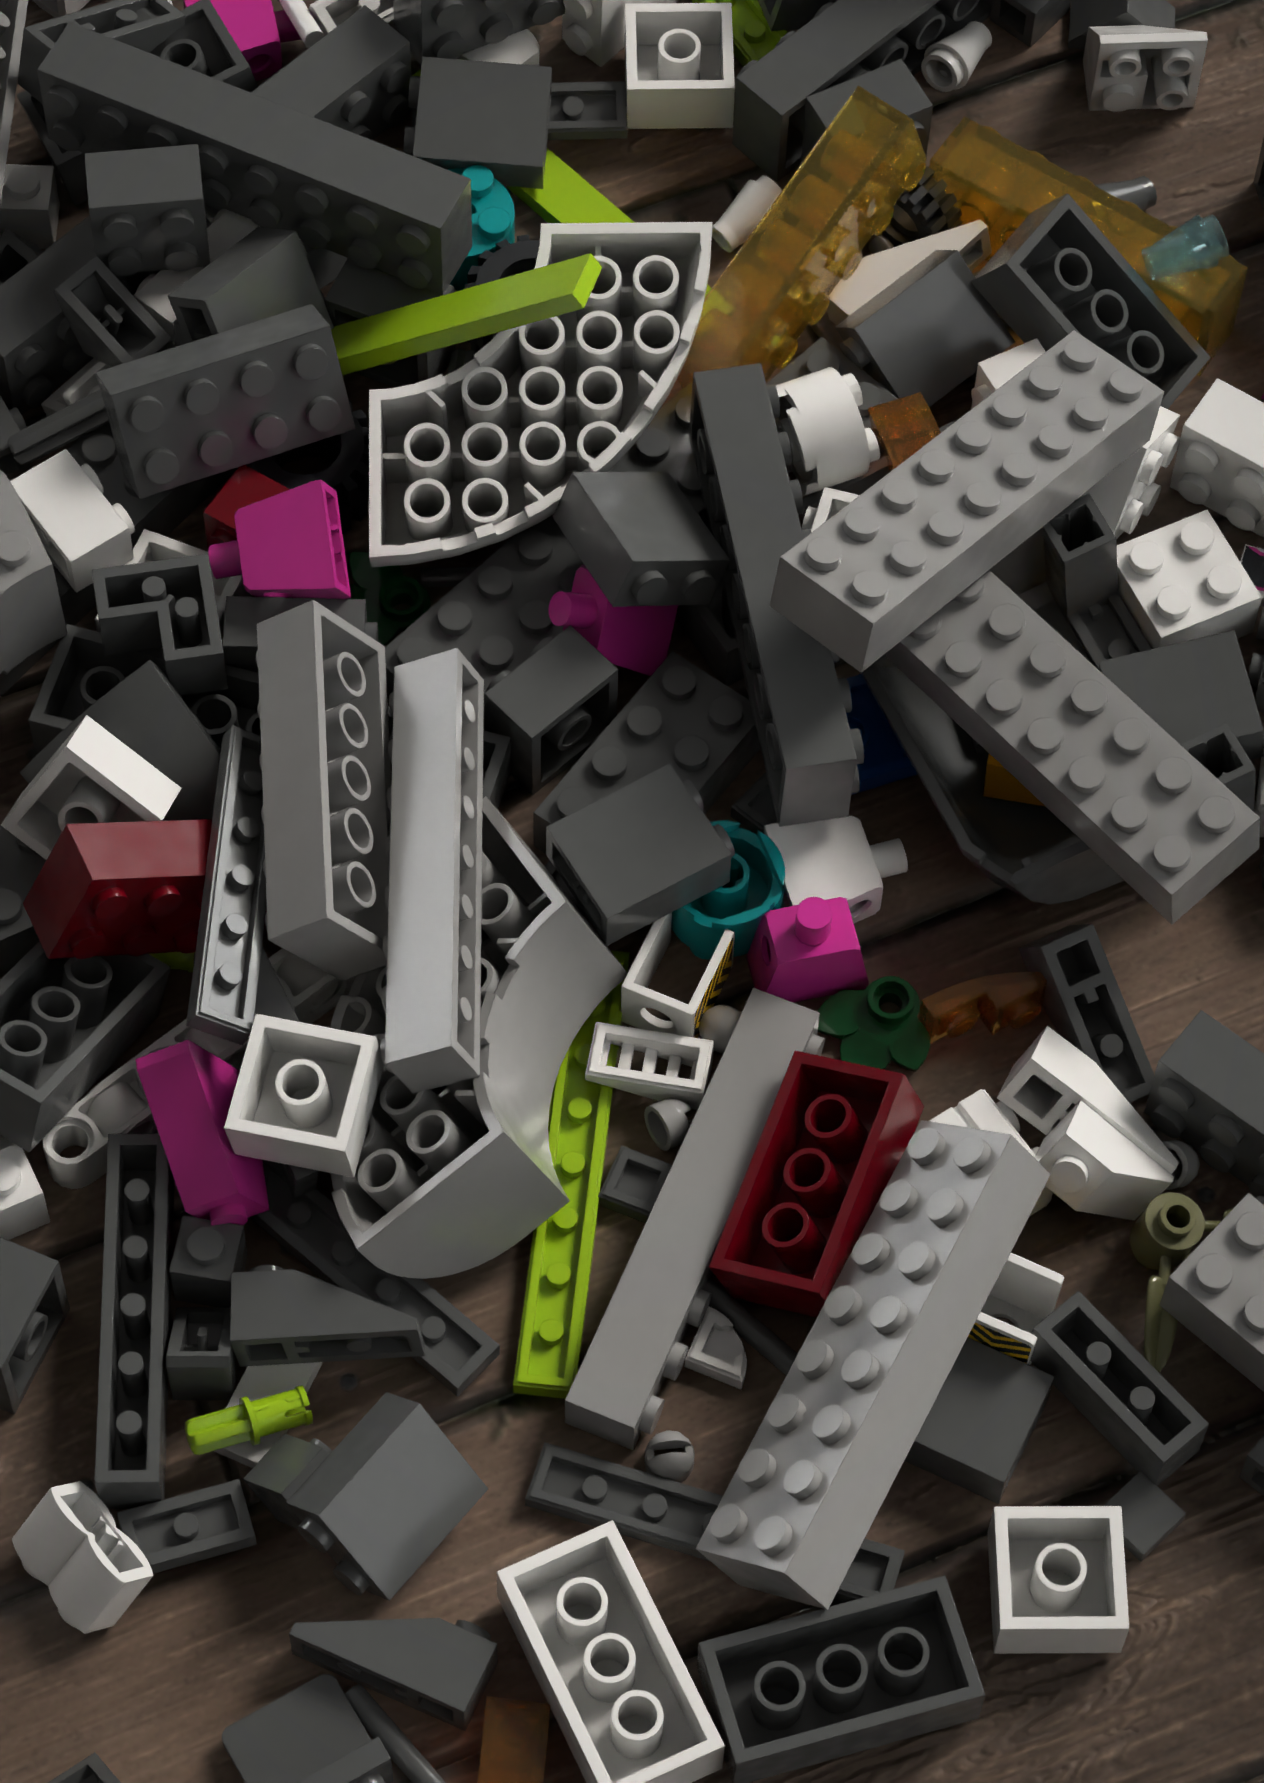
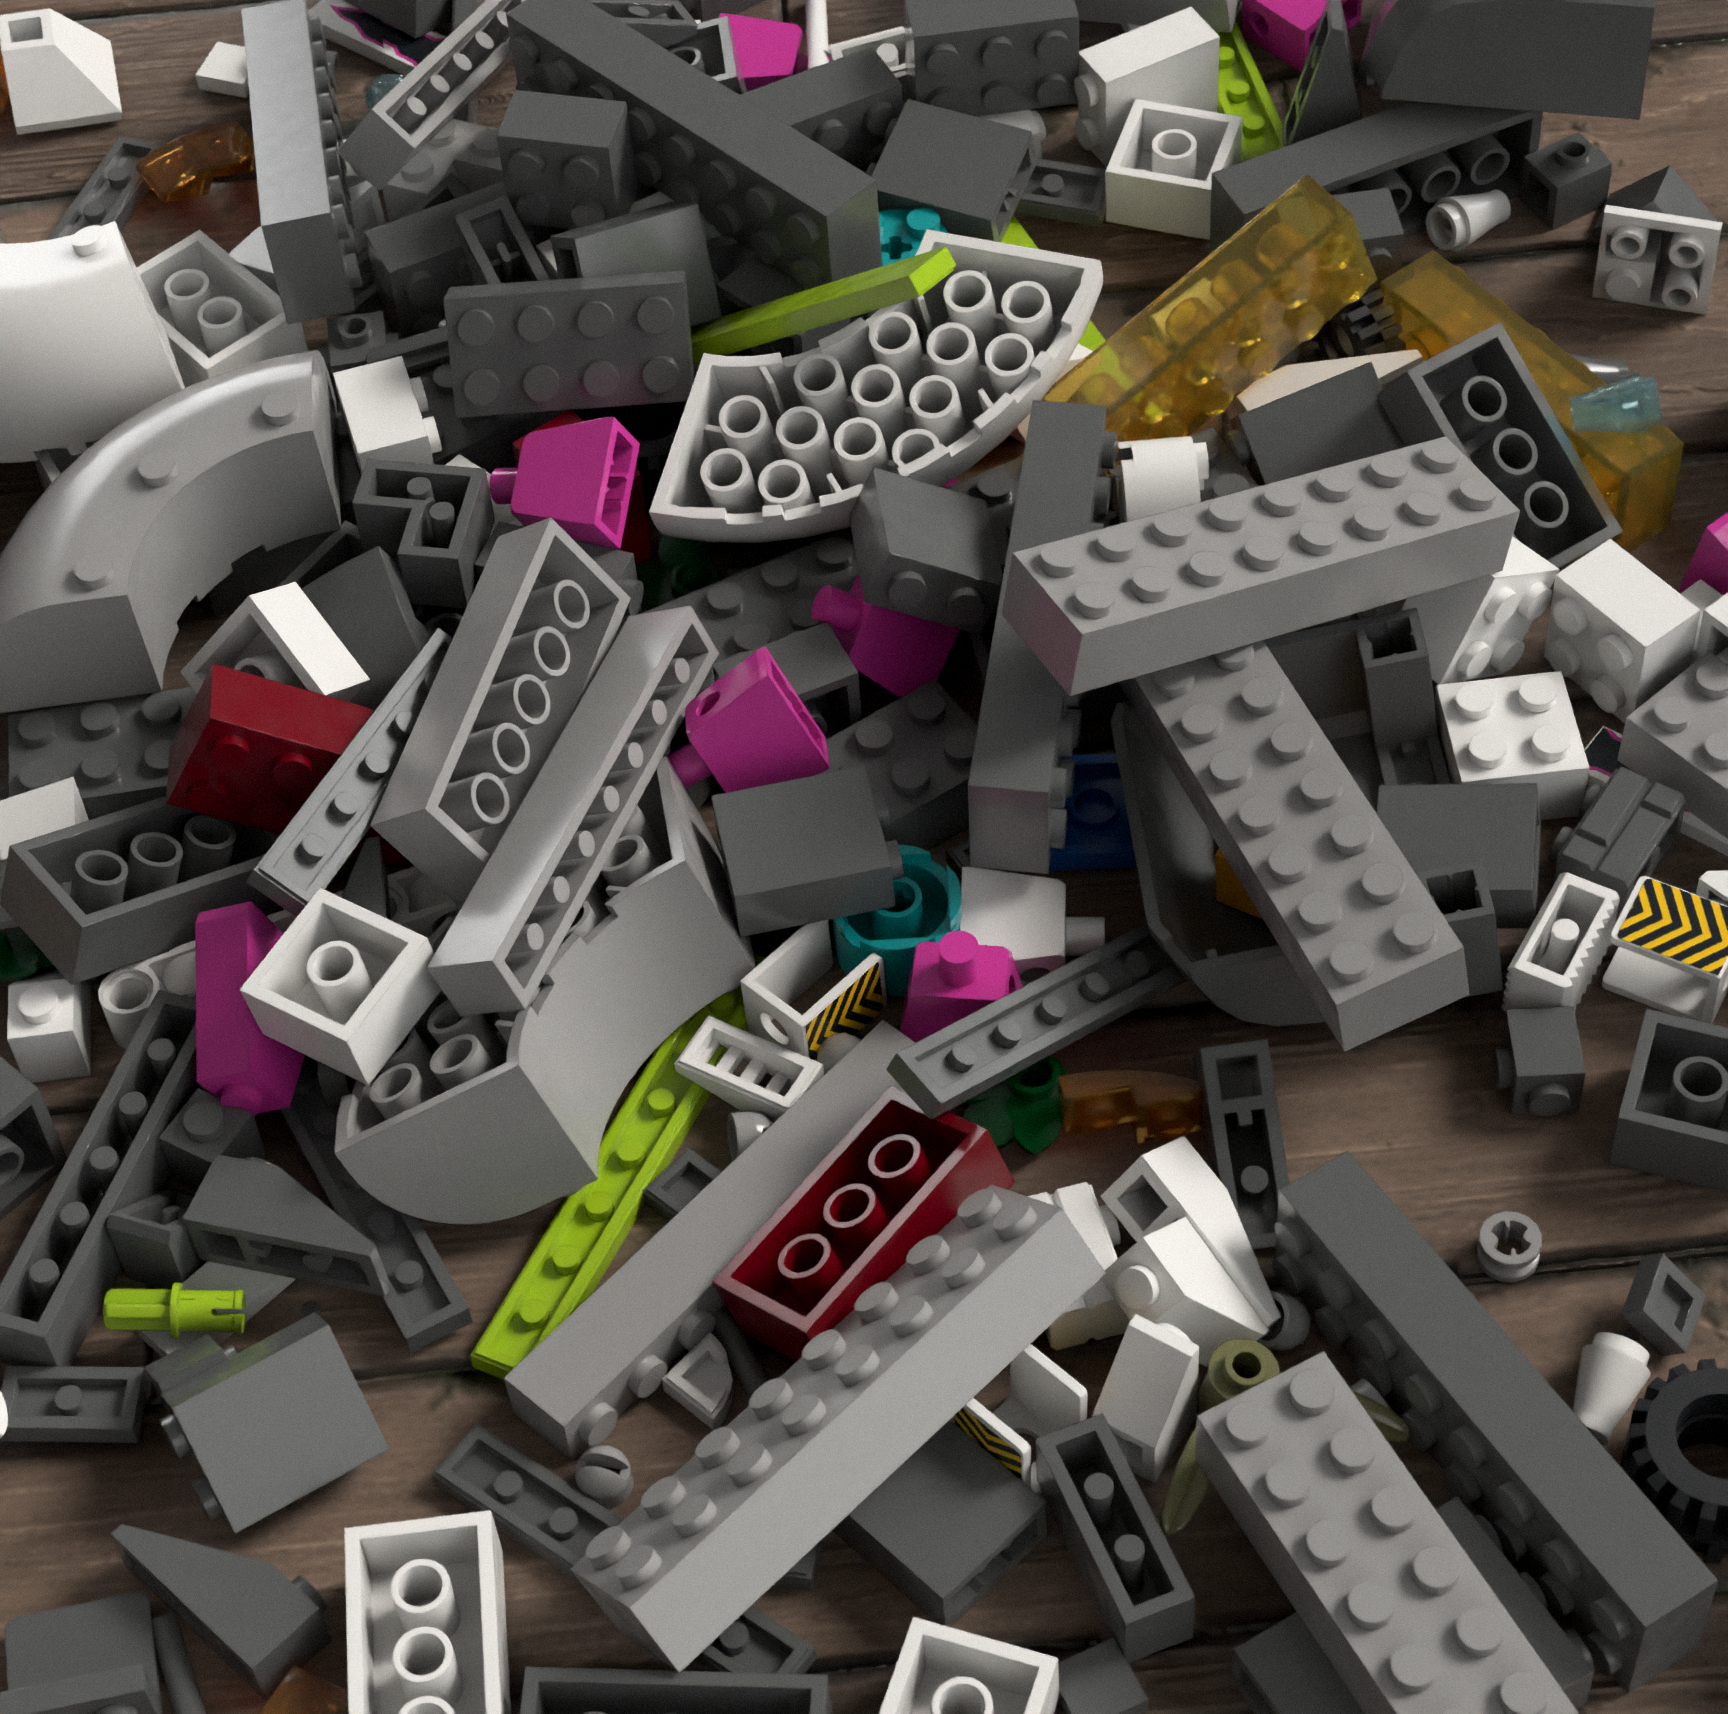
camera: 25 degrees right, 10 degrees down
(549, 754) = (750, 730): none -> dark pink torso
(894, 956) = (1033, 1022): none -> dark grey plate
(1103, 1257) = (1151, 1394): none -> white slope

